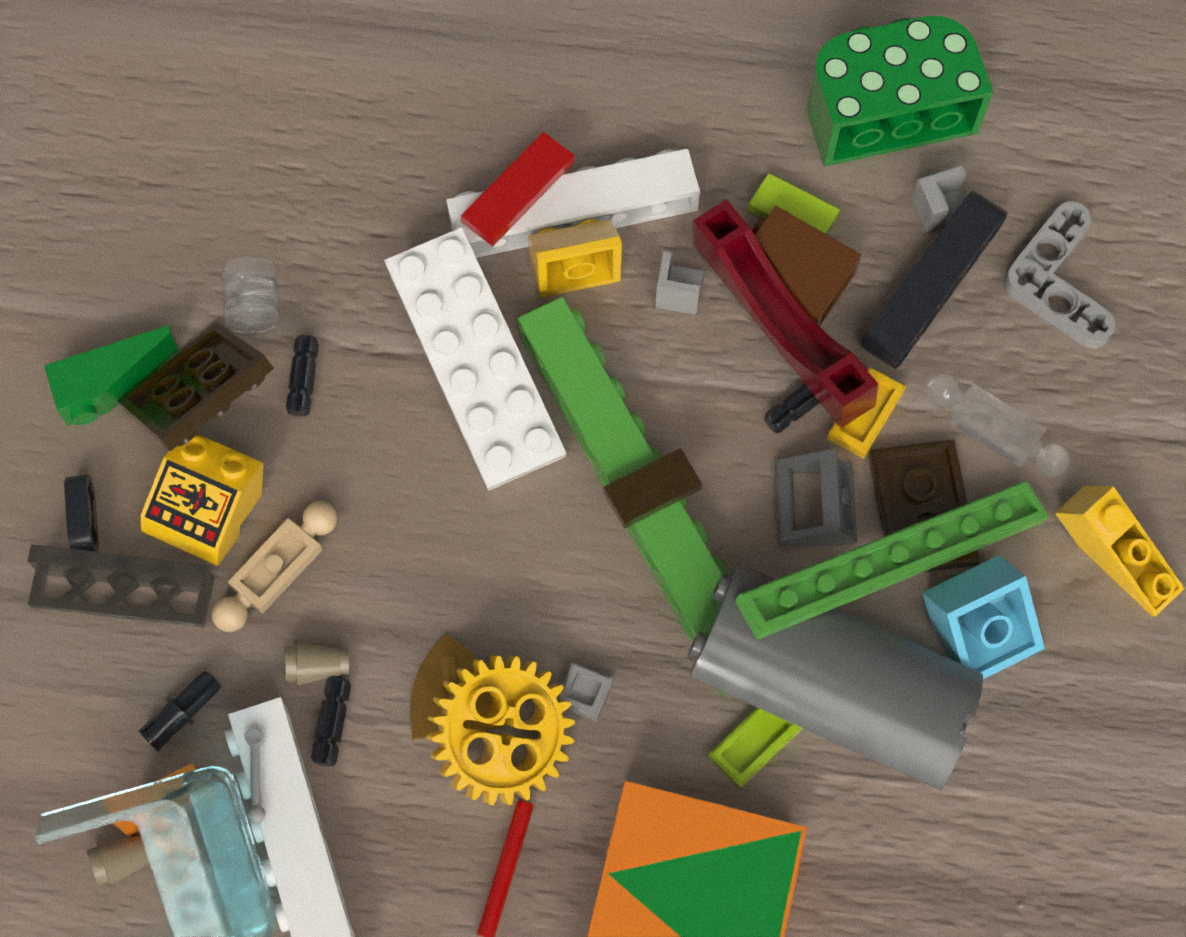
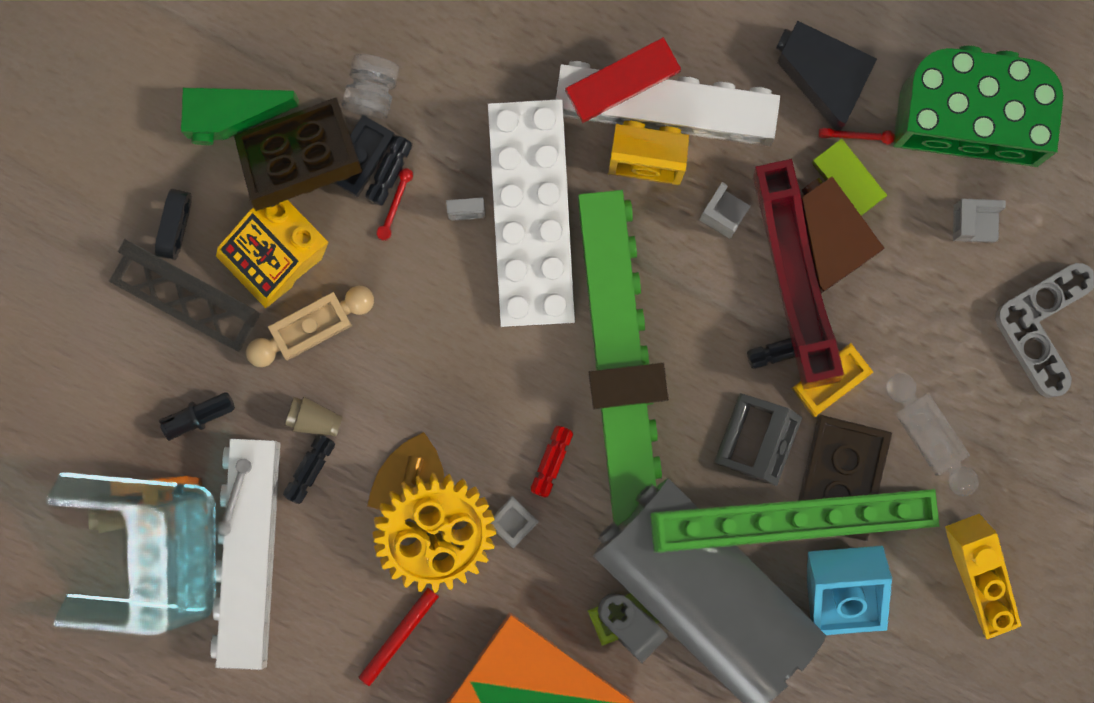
camera: 20 degrees right, 15 degrees up
(278, 349) = (370, 144): none -> black plate
(320, 440) = (384, 232): none -> red hinge
(401, 381) = (465, 209): none -> light grey tile
(601, 609) = (551, 461): none -> red axle
(722, 115) = (825, 71): none -> black slope
(751, 175) = (886, 137): none -> red hinge
(768, 746) = (635, 630): none -> dark grey piece
(934, 280) = (938, 289): black beam -> none

